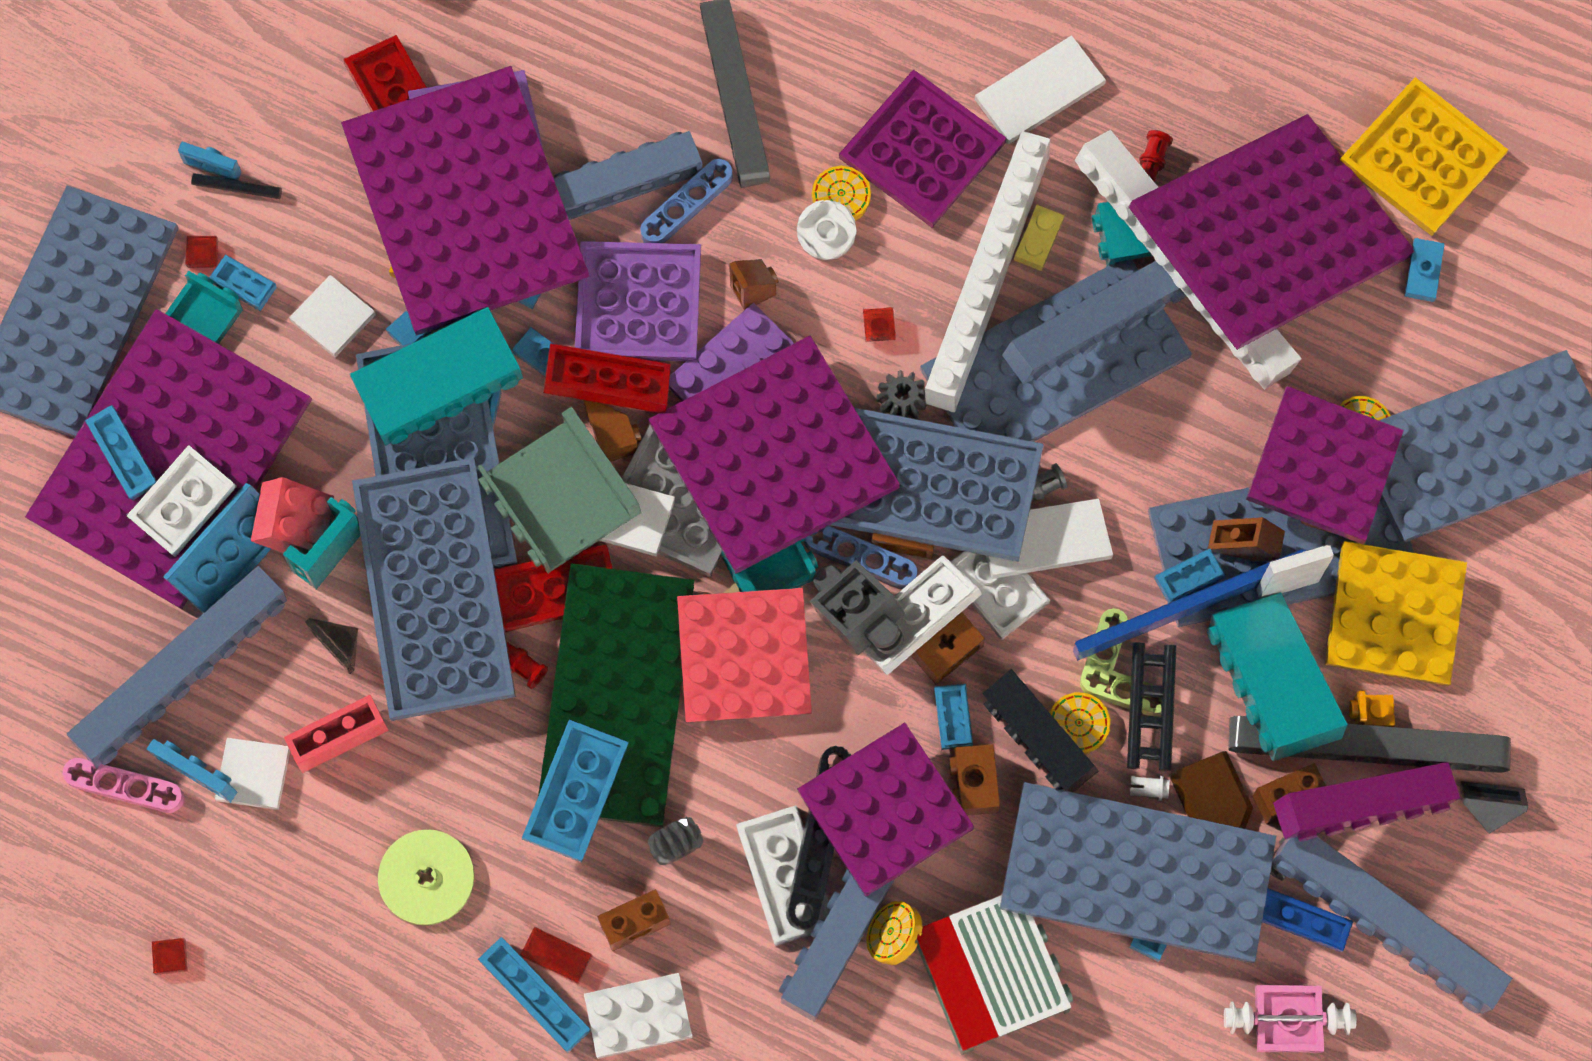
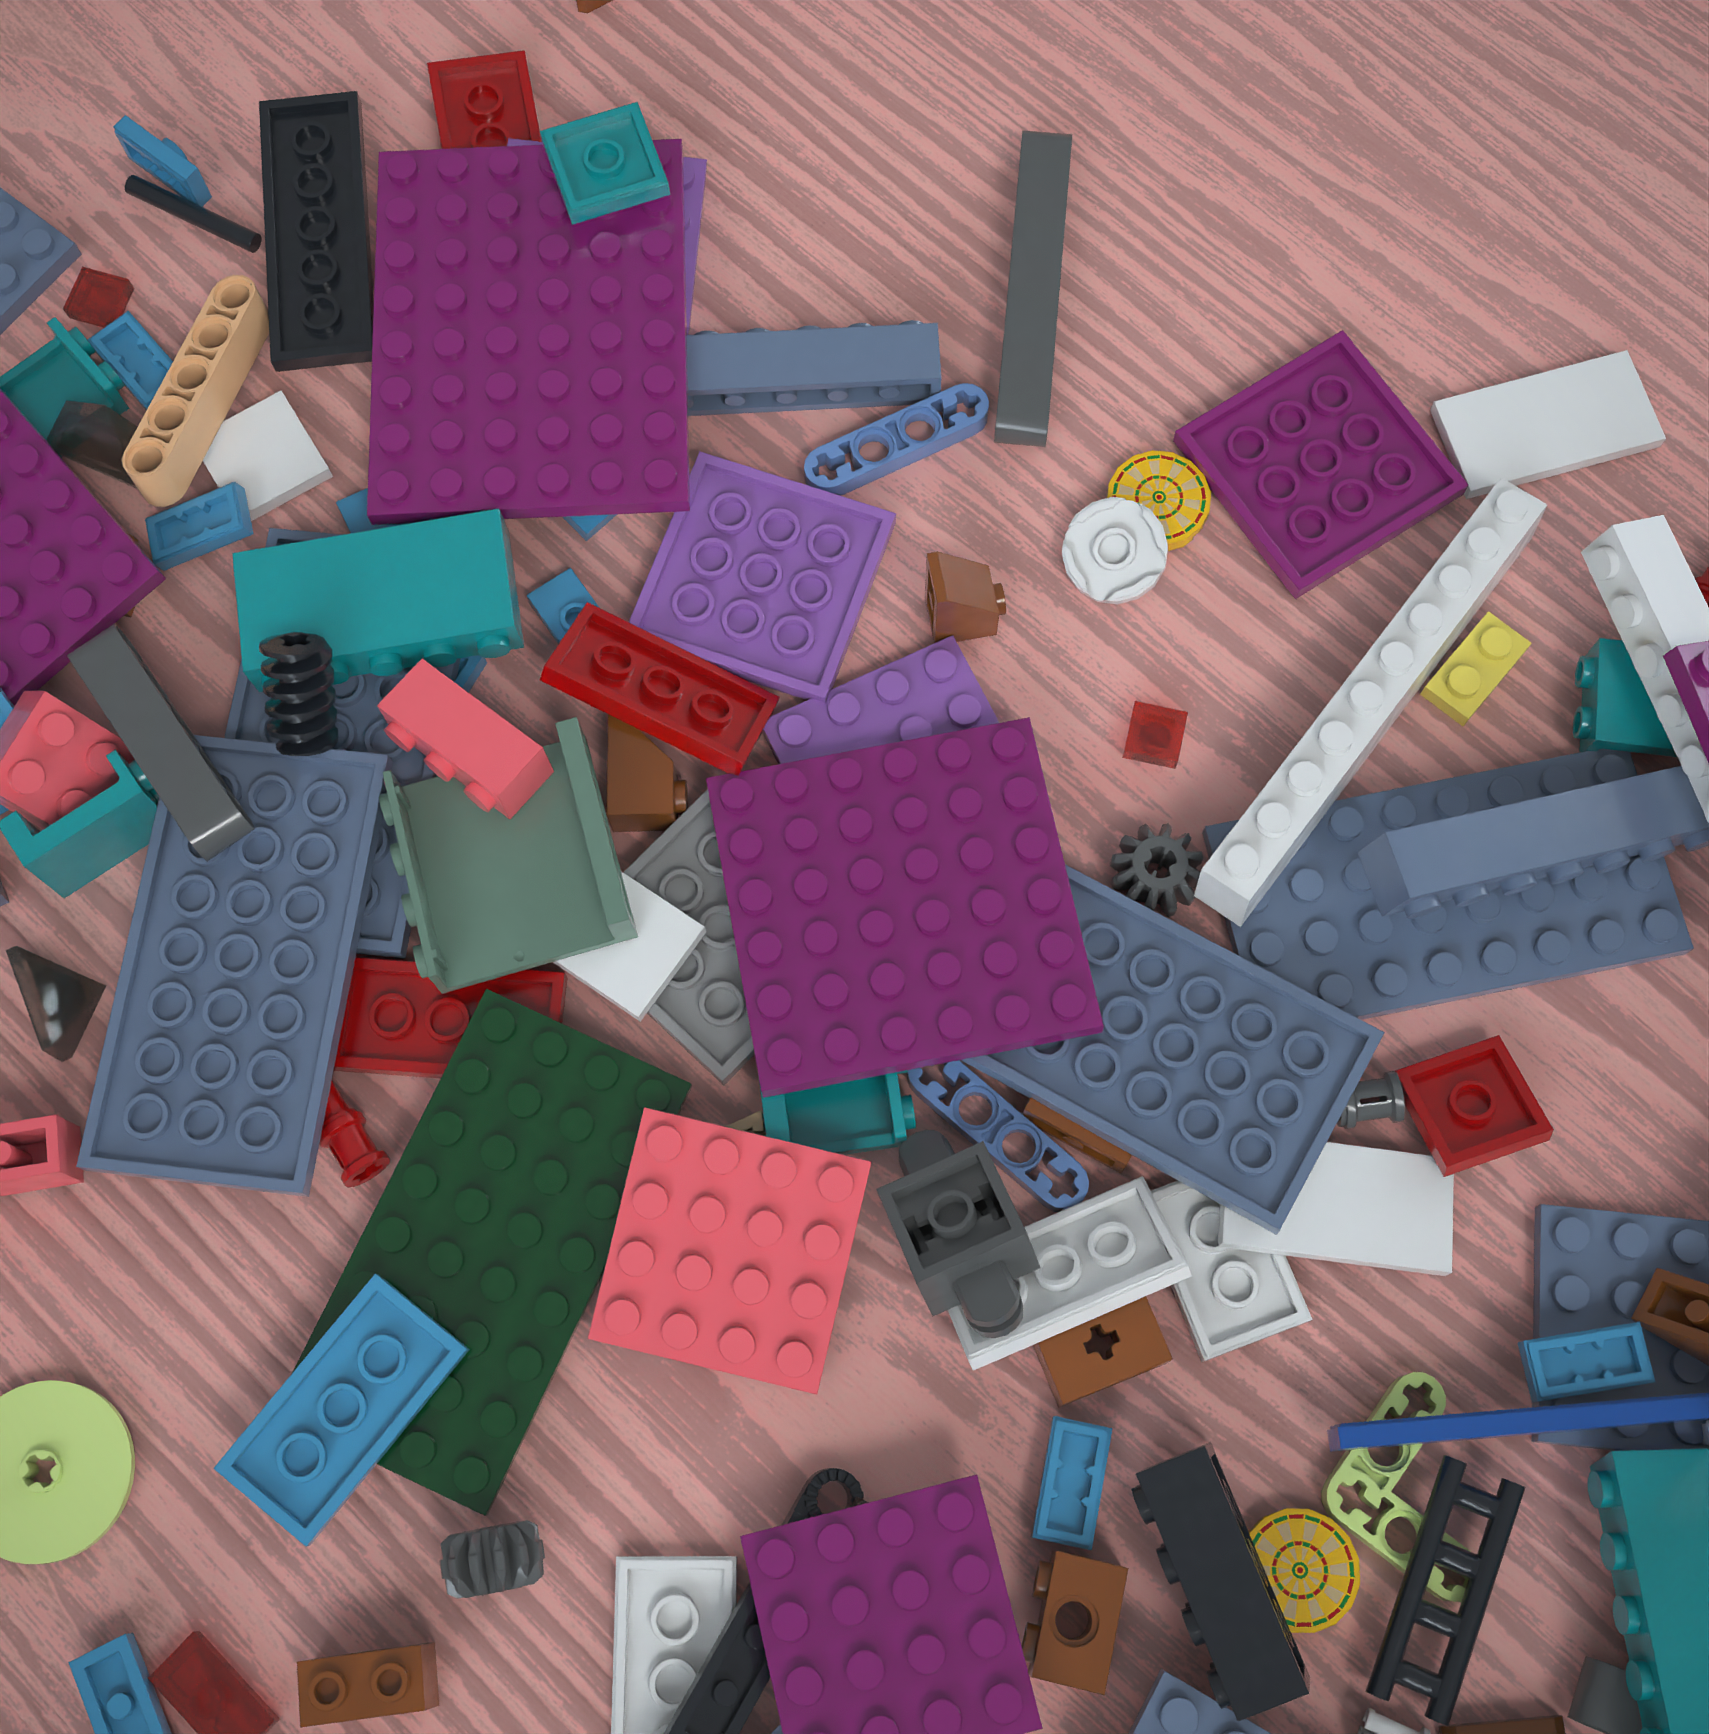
camera: 20 degrees right, 0 degrees up
(242, 333) = (93, 438): none -> clear smoke slope
(290, 300) = (197, 391): none -> light nougat beam
(314, 175) = (316, 231): none -> black plate
(314, 364) = (199, 526): none -> dark azure plate
(350, 485) = (161, 742): none -> dark grey beam
(418, 438) = (300, 693): none -> black piece
(476, 94) = (605, 163): none -> teal plate
(513, 436) = (464, 740): none -> coral brick
(1100, 468) = (1473, 1106): none -> red plate

